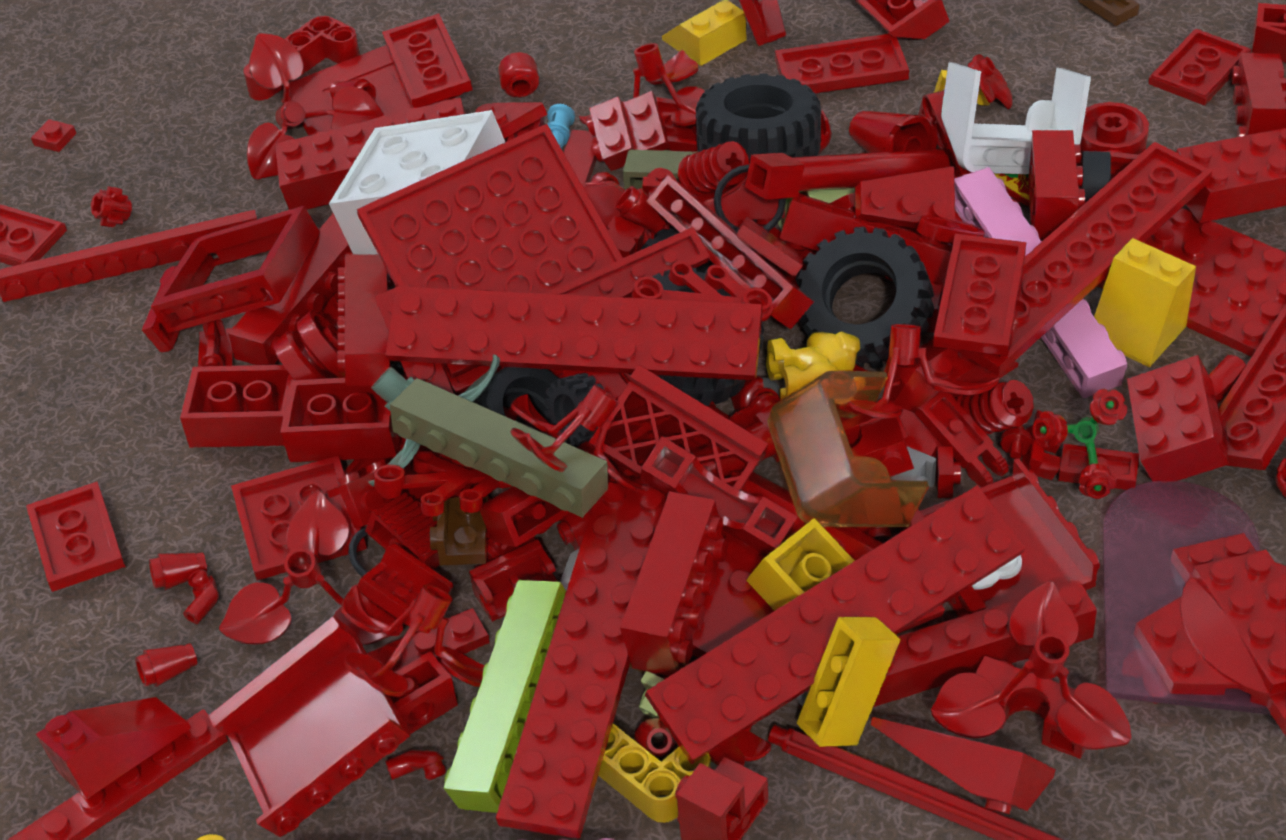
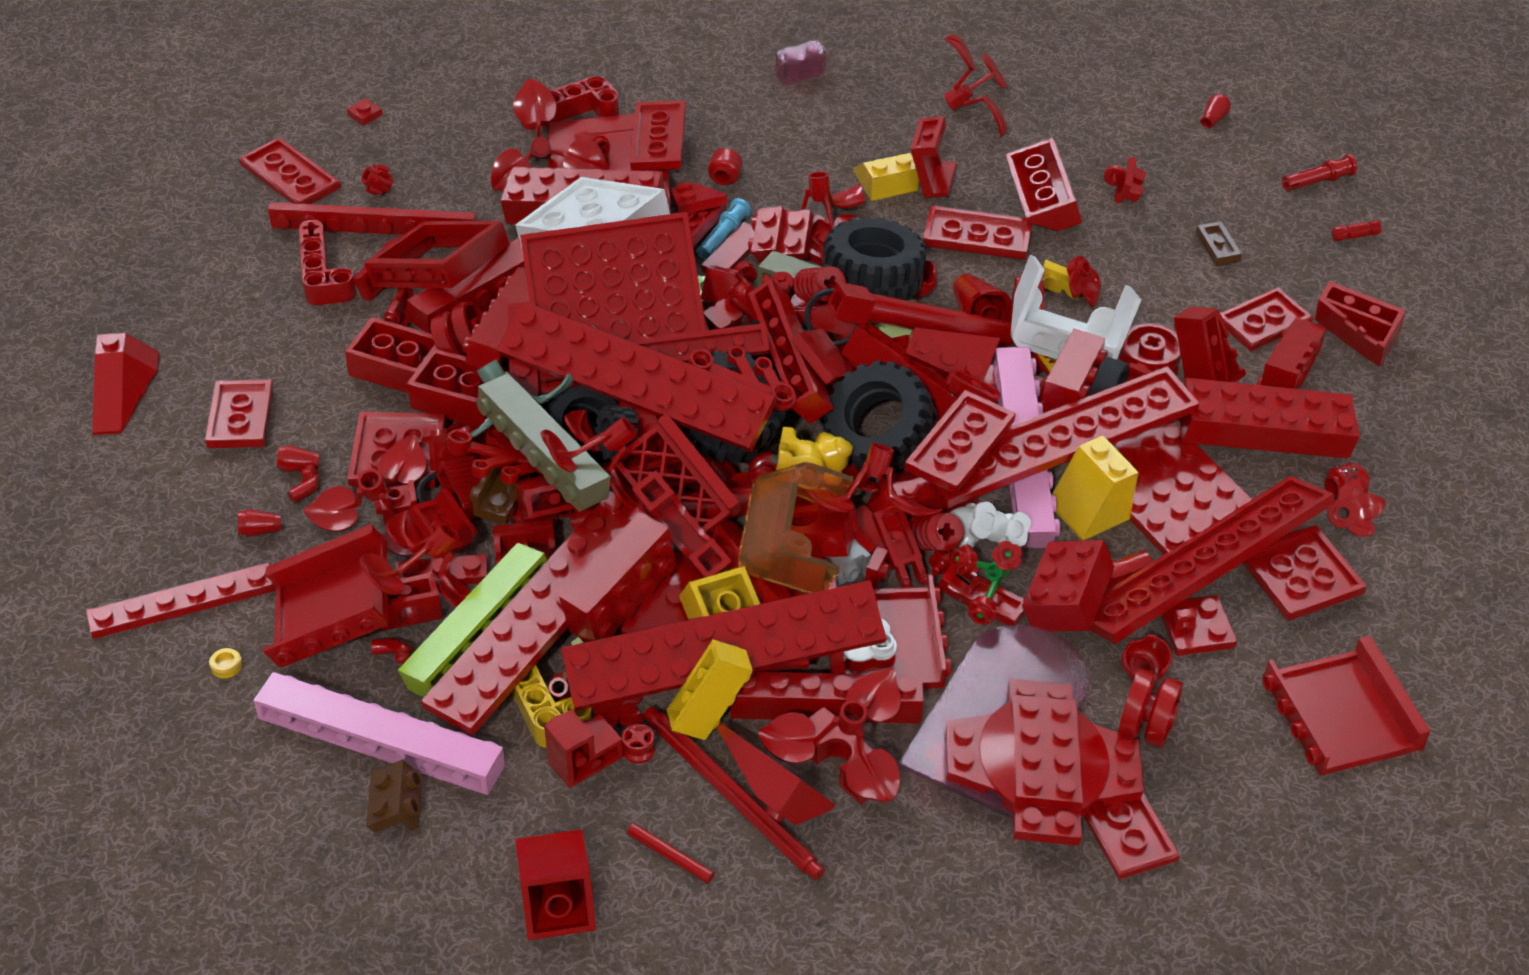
camera: 15 degrees right, 0 degrees up
(98, 348) = (320, 283): none -> red beam
(107, 741) = (193, 561): red slope -> none
(340, 574) = (399, 497): none -> red brick
(782, 766) = (641, 736): none -> red wheel
(1060, 378) = (984, 522): none -> white animal
(1173, 107) = (1205, 347): none -> red wedge

